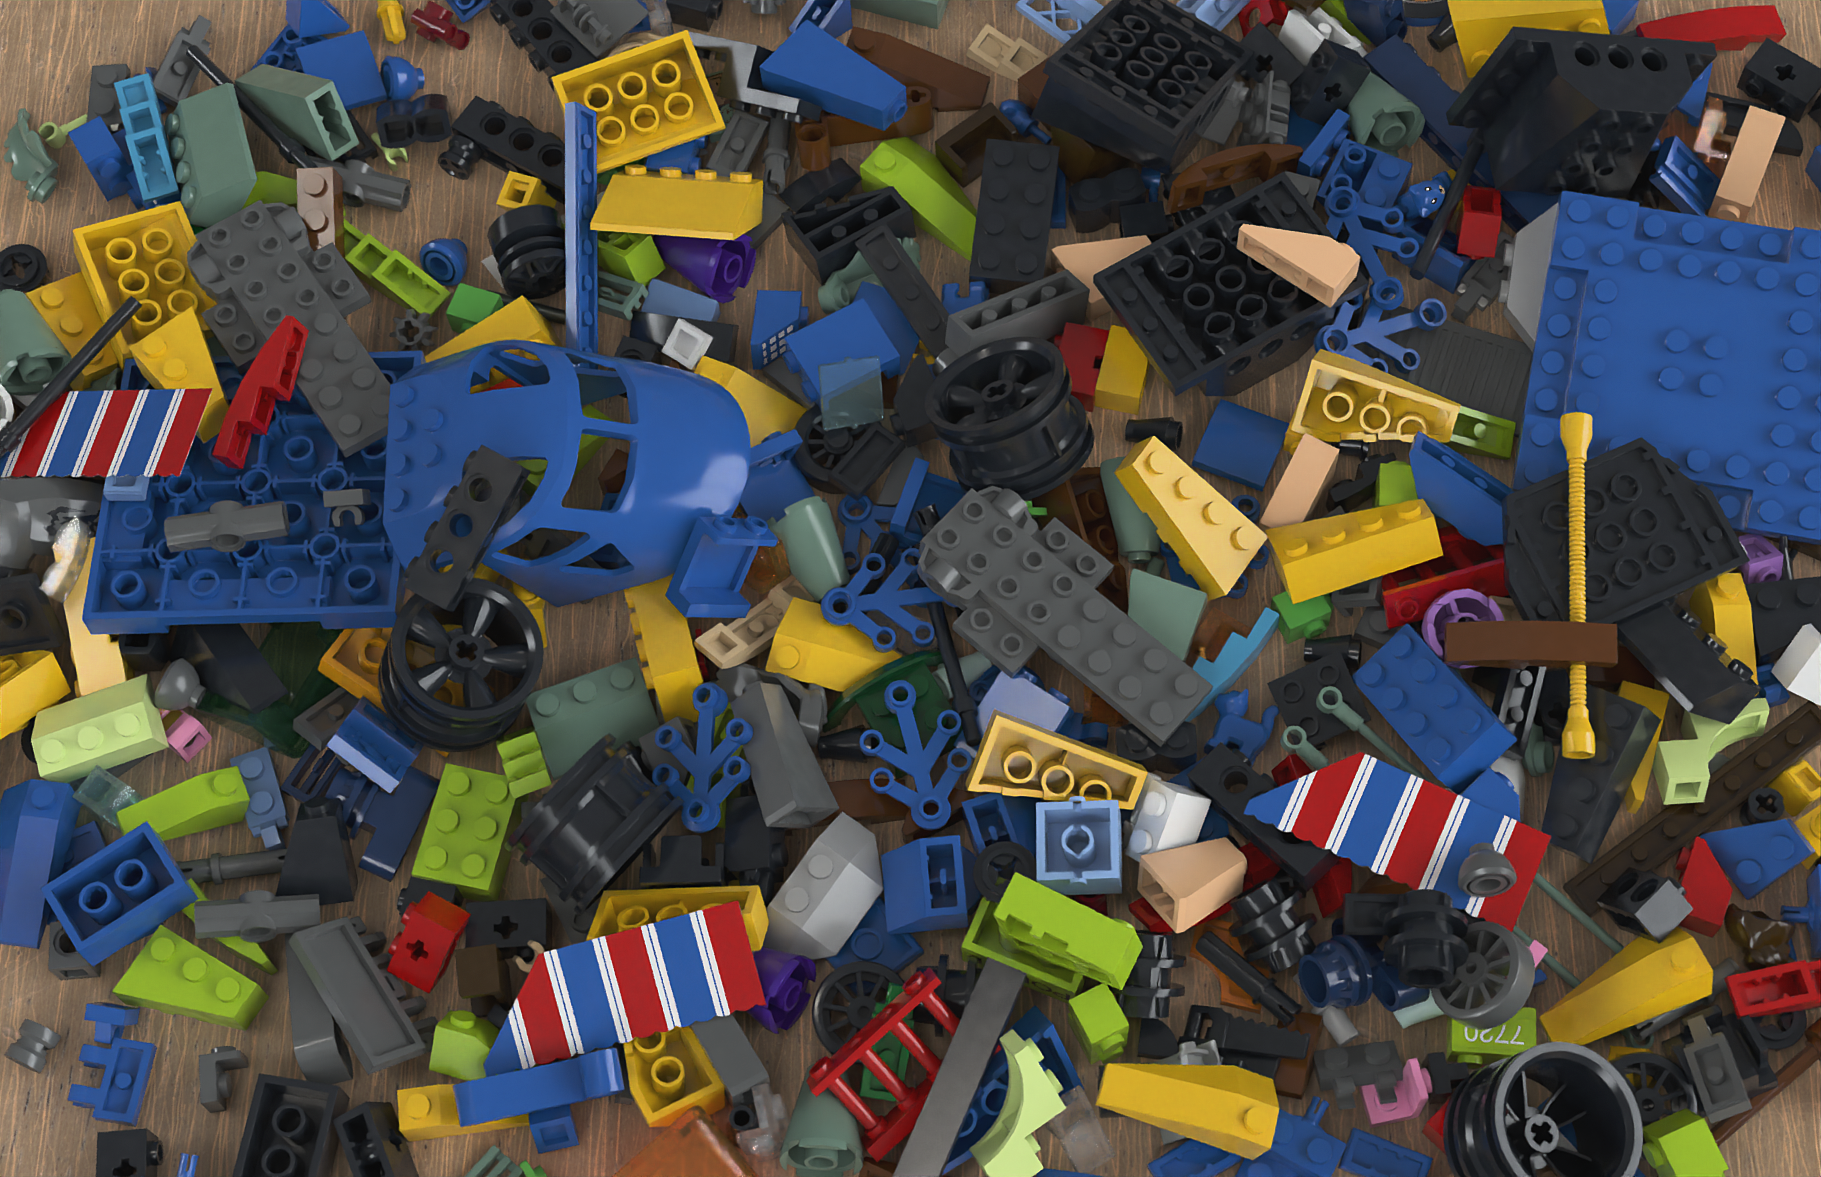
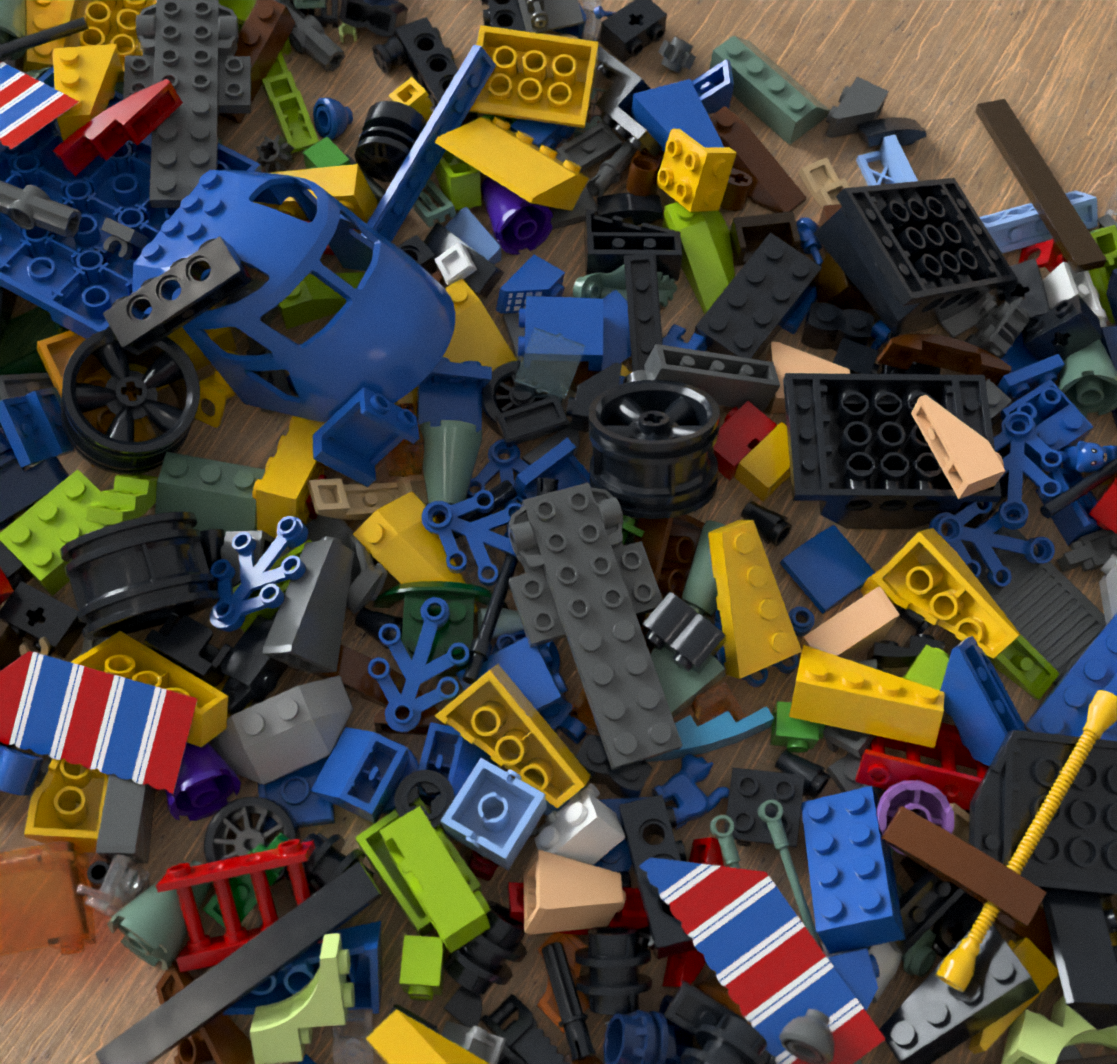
camera: 20 degrees right, 0 degrees up
(872, 119) = (694, 173): none -> yellow bracket
(1150, 581) = (683, 633): none -> black brick

